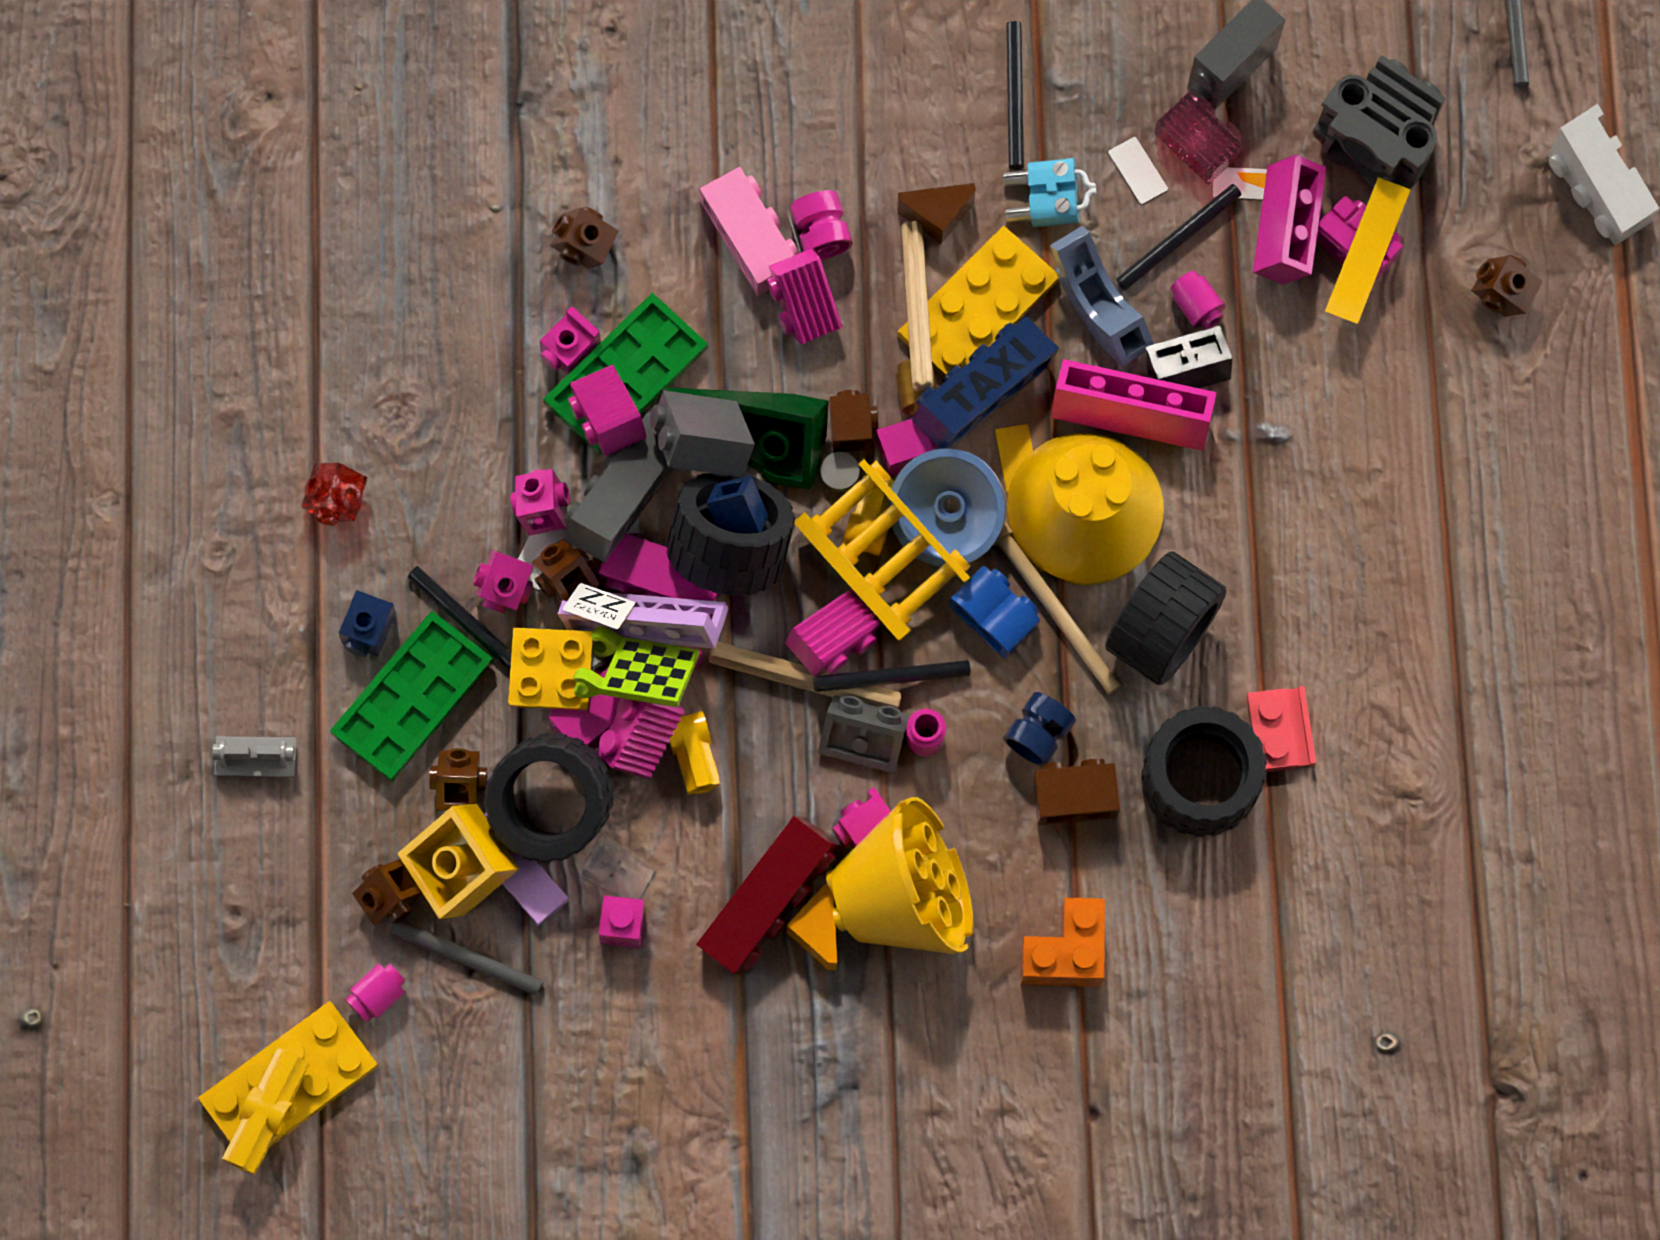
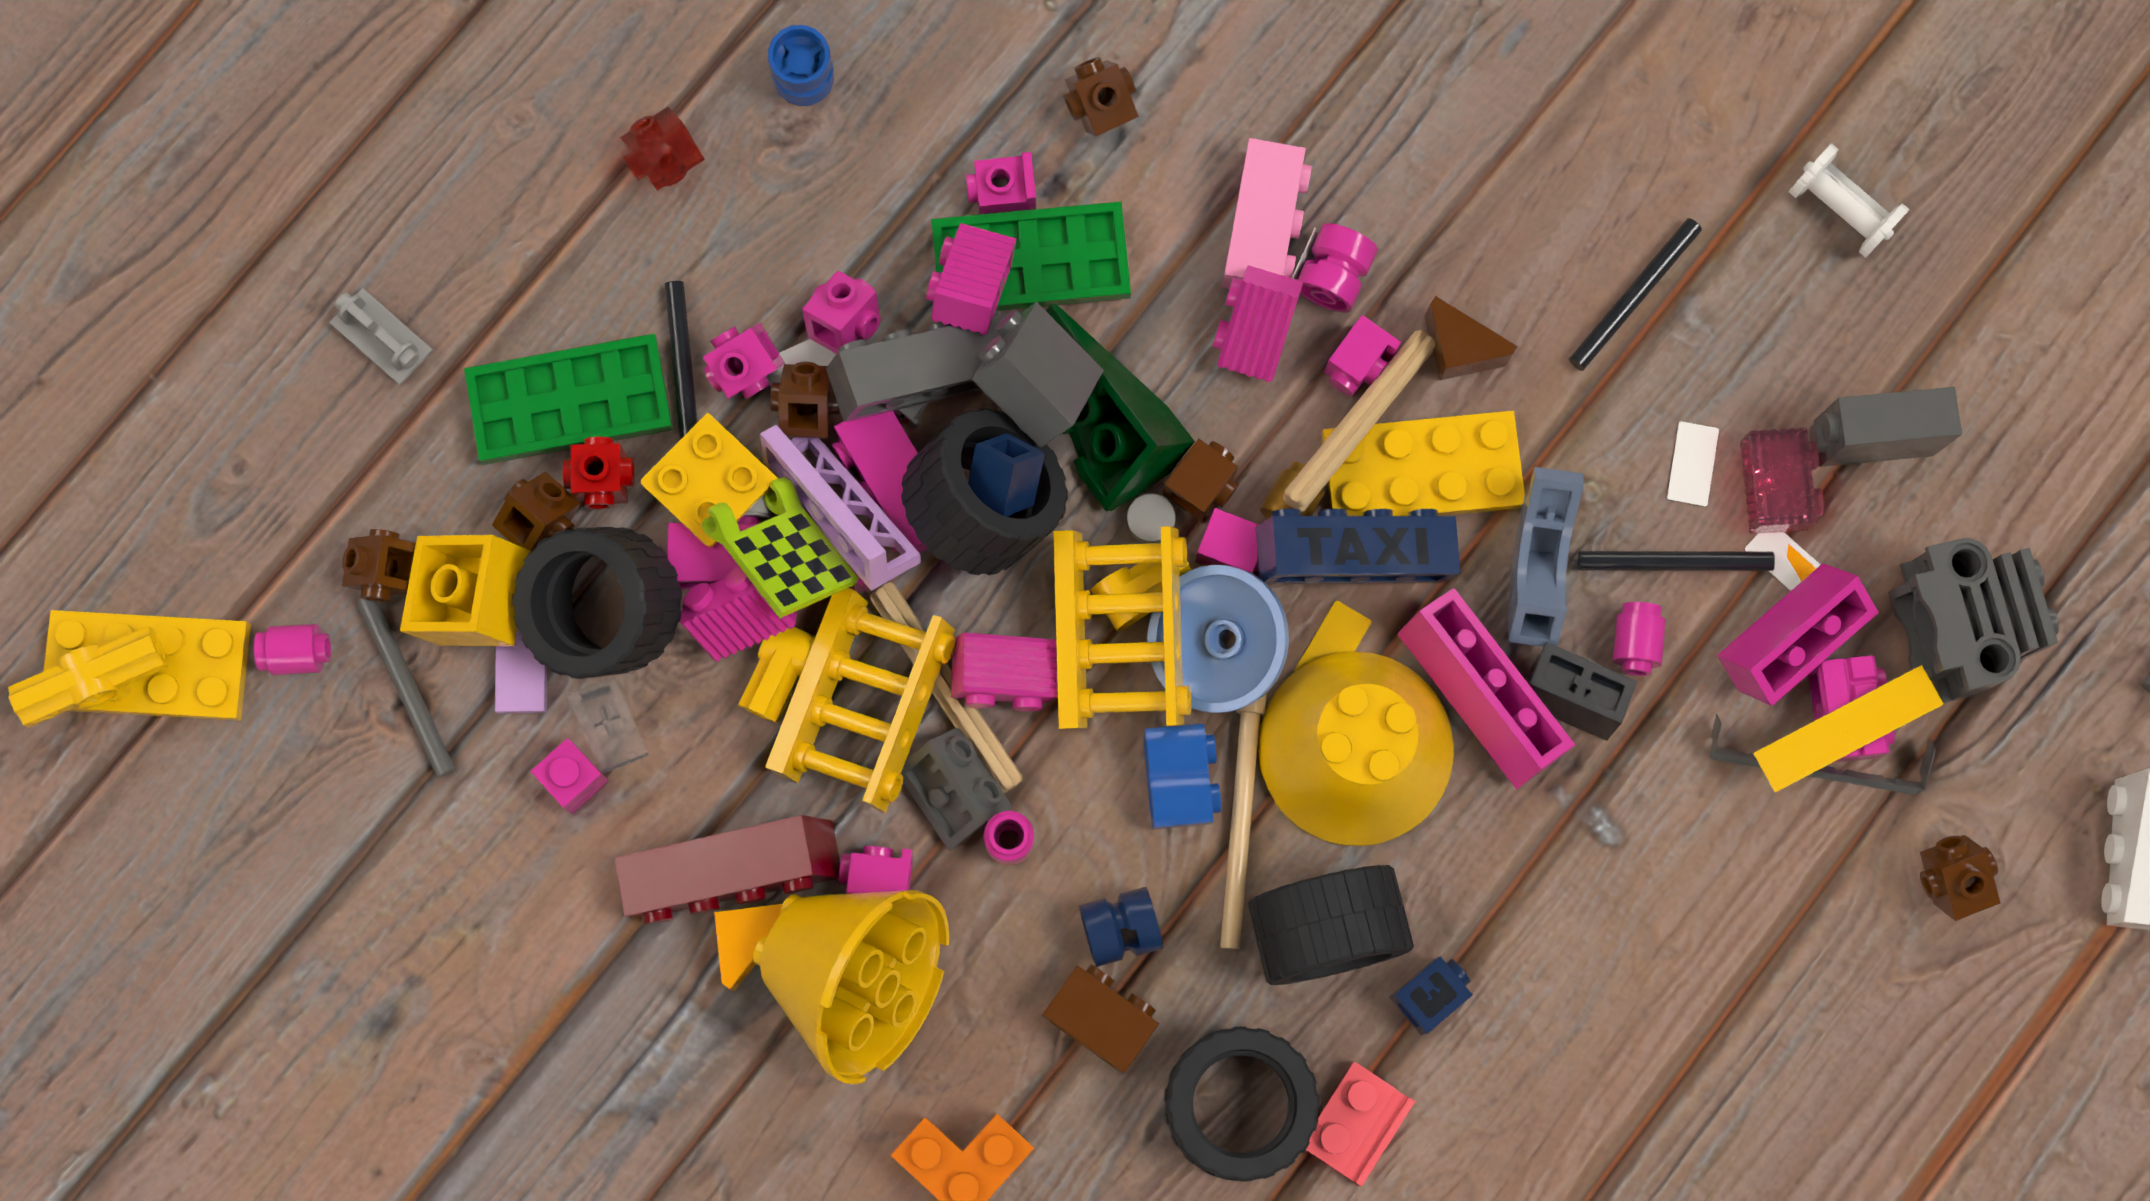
camera: 40 degrees right, 5 degrees up
(366, 624) = (584, 297): dark blue brick -> none
(376, 370) = (801, 65): none -> blue wheel
(481, 735) = (610, 485): none -> red brick
(598, 606) = (800, 458): white sticker -> none
(723, 718) = (830, 663): none -> yellow fence
(883, 267) = (1360, 356): none -> dark pink brick
(891, 676) = (1026, 756): black bar -> none
(1052, 193) = (1587, 418): medium azure piece -> none
(1259, 614) = (1432, 994): none -> dark blue brick
(1377, 289) = (1831, 773): none -> dark grey piece

